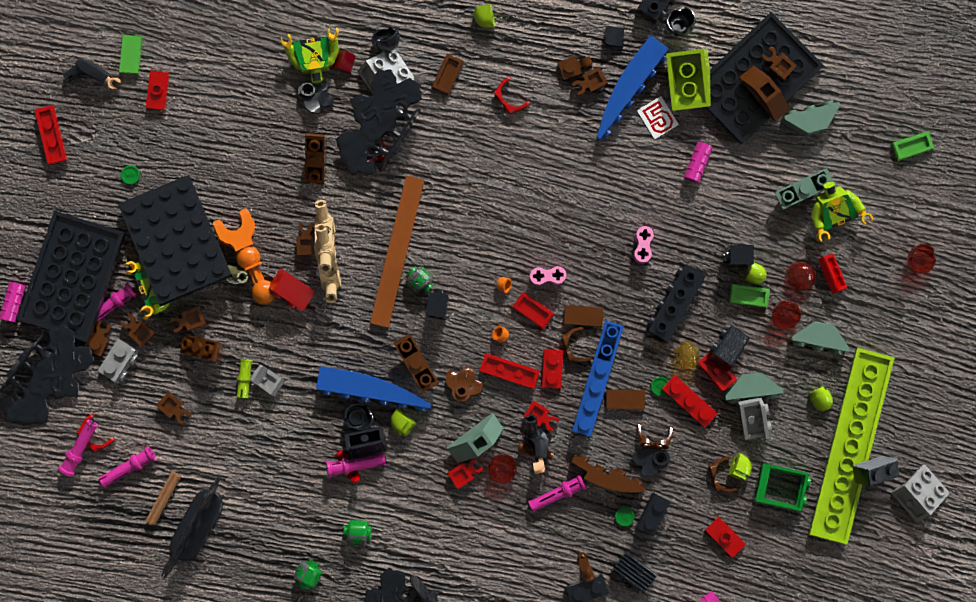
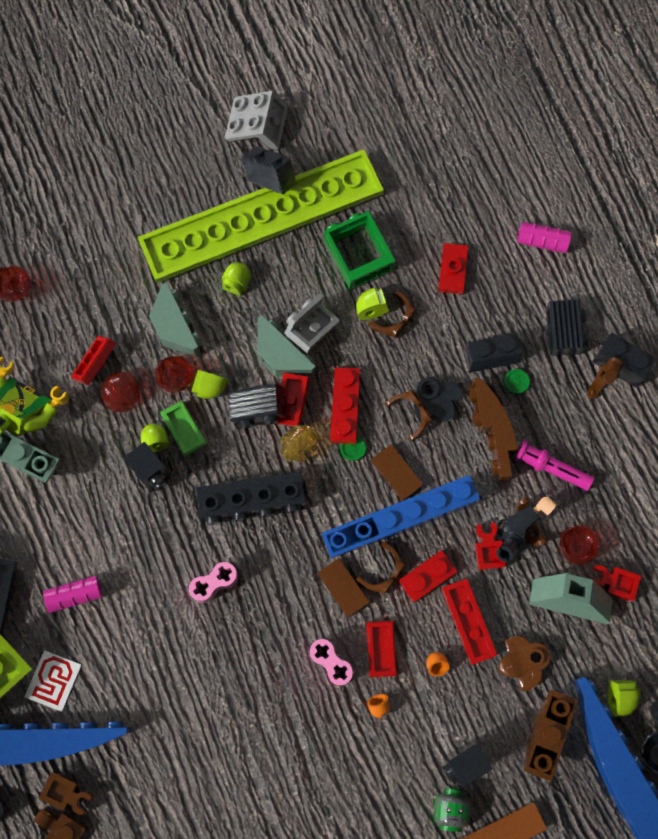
camera: 130 degrees left, 10 degrees down
(764, 330) = (208, 385): none -> lime piece

